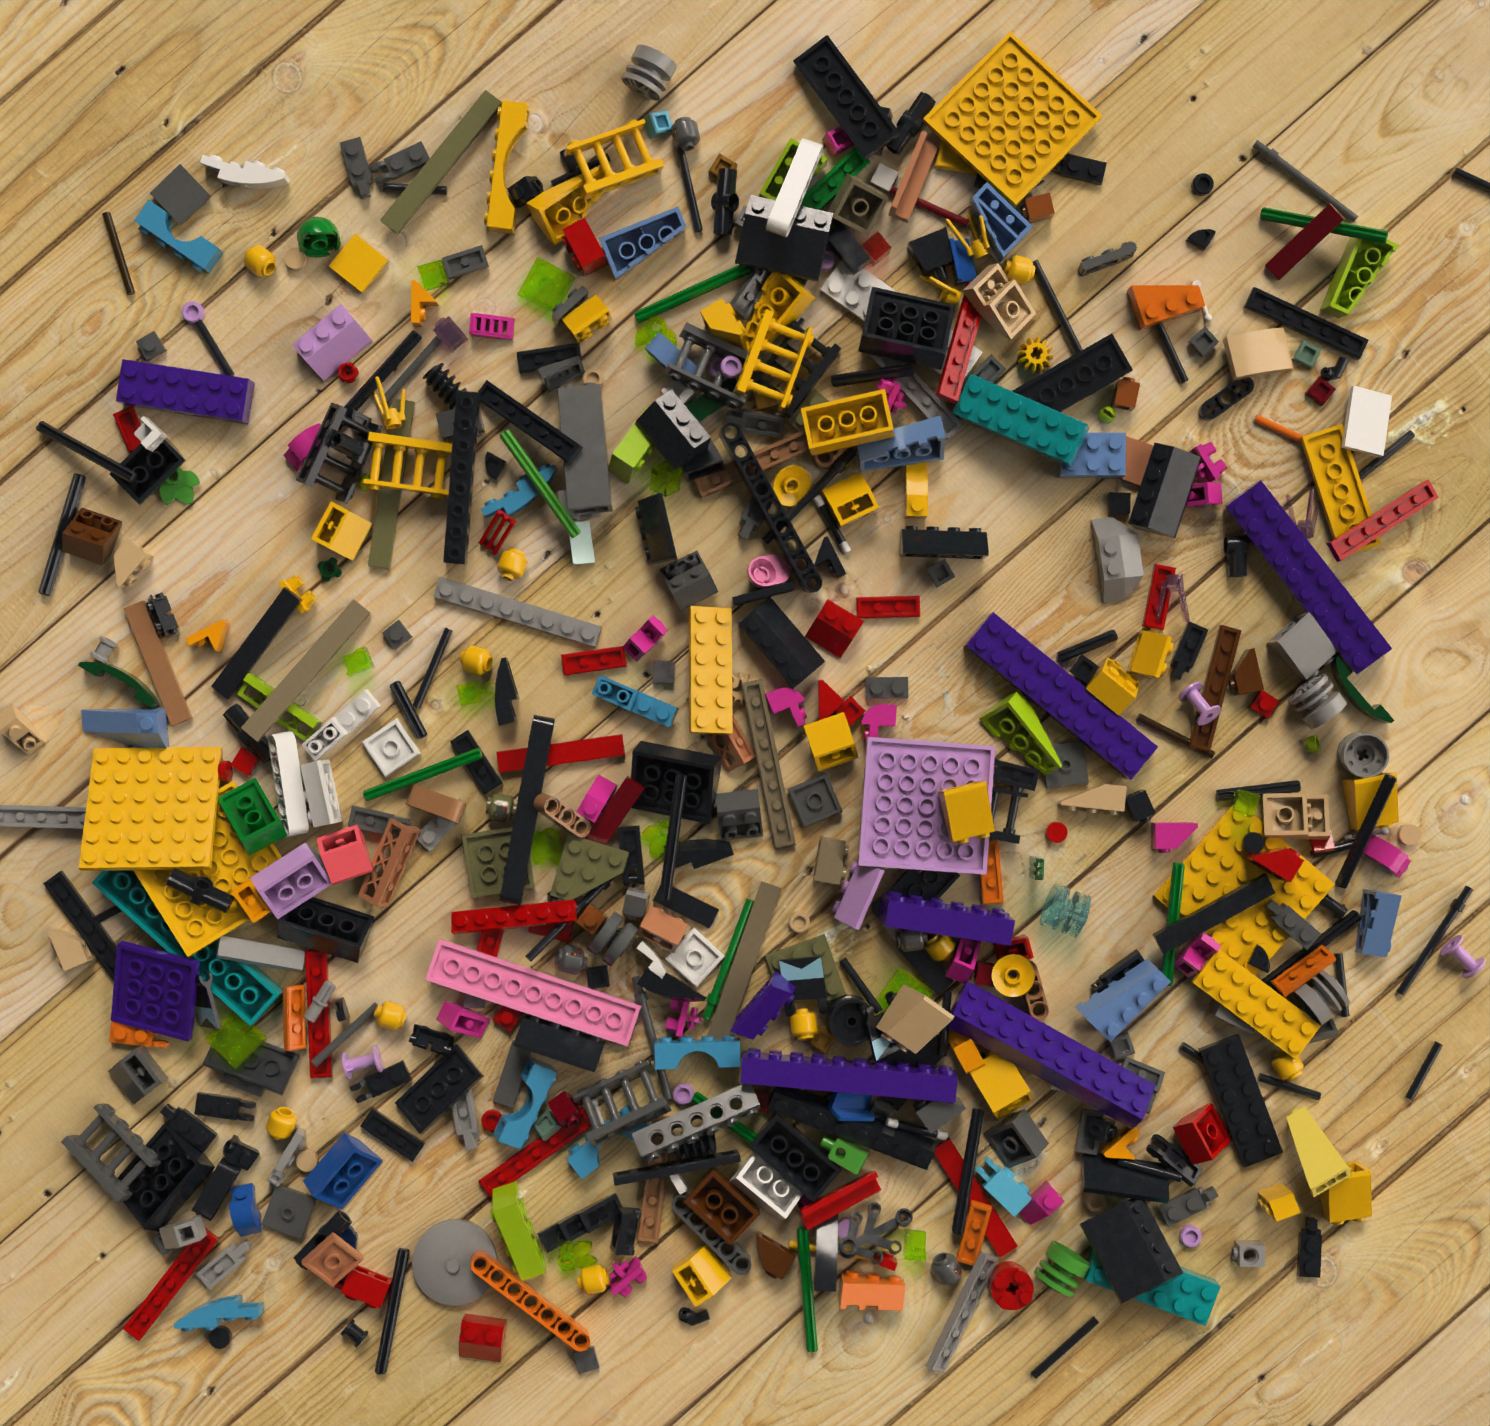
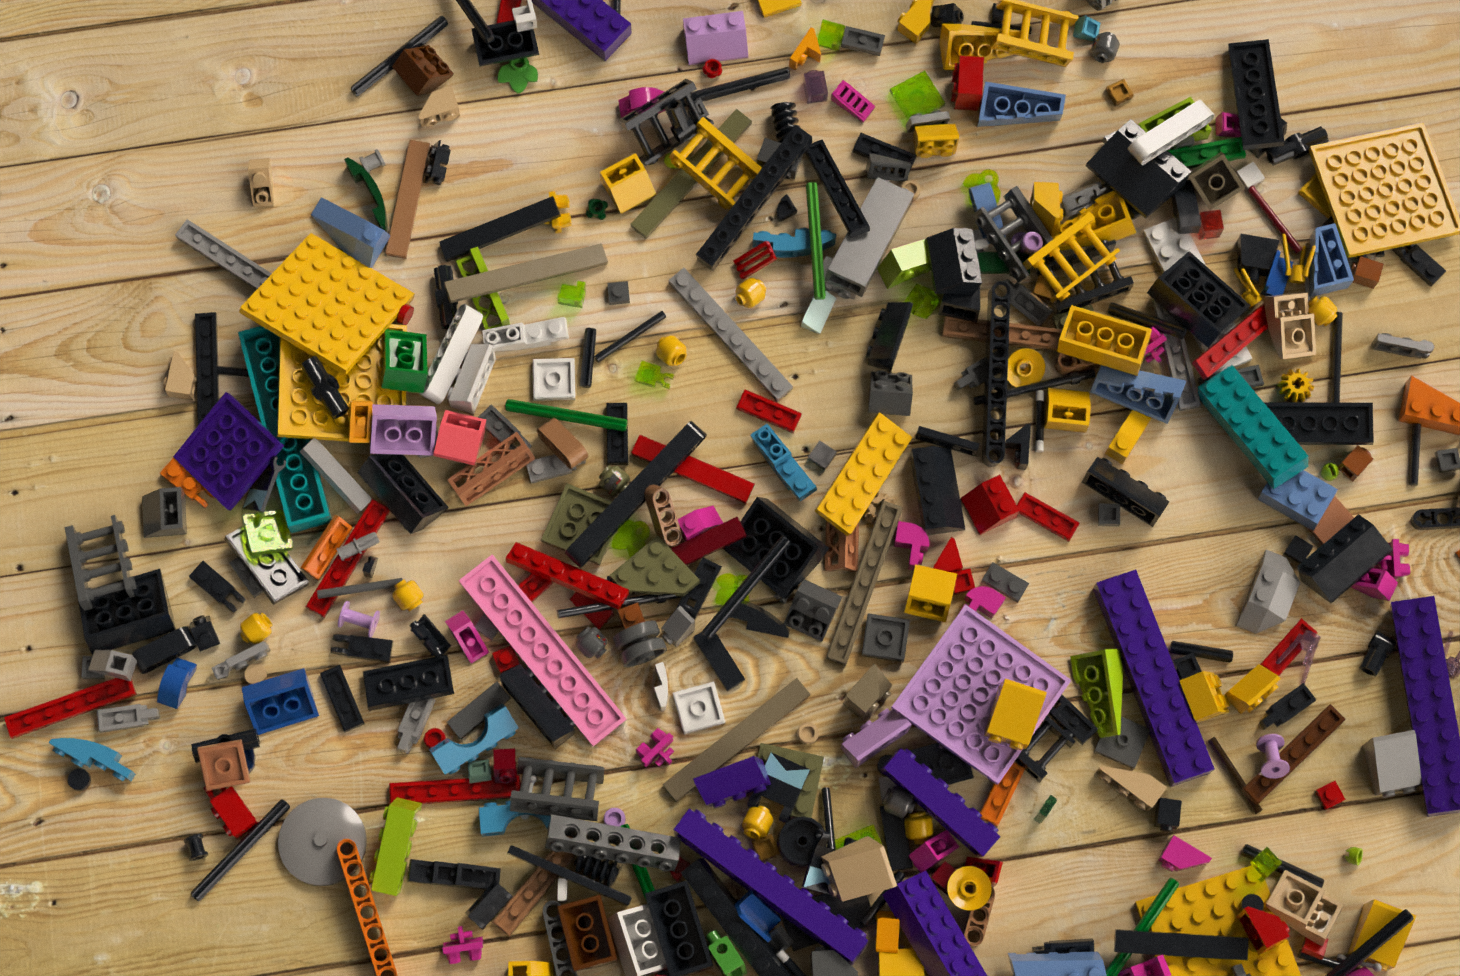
camera: 25 degrees right, 15 degrees down
(189, 1126) = (176, 585): black hinge -> none
(216, 633) = (470, 200): light orange slope -> none
(245, 761) = (426, 317): red tile -> none
(289, 1211) = (211, 708): dark grey plate -> none
(391, 418) = (726, 120): yellow plant -> none
(408, 373) = (764, 97): dark grey bar -> none
(482, 1337) = (301, 923): red slope -> none
(505, 693) = (677, 392): black slope -> none
(575, 1255) = (434, 899): clear neon green plate -> none
(593, 1279) = (433, 930): yellow head -> none
(598, 977) = (605, 673): black tile -> none
(641, 998) = (630, 714): dark grey bar -> none
(645, 638) = (824, 418): dark pink brick -> none
(662, 929) = (686, 664): nougat brick -> none
(669, 987) = (662, 715): black slope -> none
(670, 1052) = (627, 772): dark azure arch -> none
(689, 190) = (1081, 93): black bar -> none
(692, 292) = (1036, 171): green axle -> none
(713, 997) = (693, 751): green bar -> none
(725, 201) = (1105, 116): black piece -> none
(768, 571) = (962, 424): bright pink cap -> none
(829, 261) = (1163, 212): lavender tile -> none
(913, 179) = (1274, 188): nougat fence -> none
(1056, 832) = (1080, 794): red tile -> none
(1070, 912) = (1049, 862): clear light blue wheel -> none
(1246, 674) = (1328, 760): reddish brown slope -> none
(1319, 704) = (1379, 816): light grey wheel -> none
(1341, 672) = (1427, 862): dark green slope -> none
(1375, 753) = (1395, 875): light grey wheel -> none

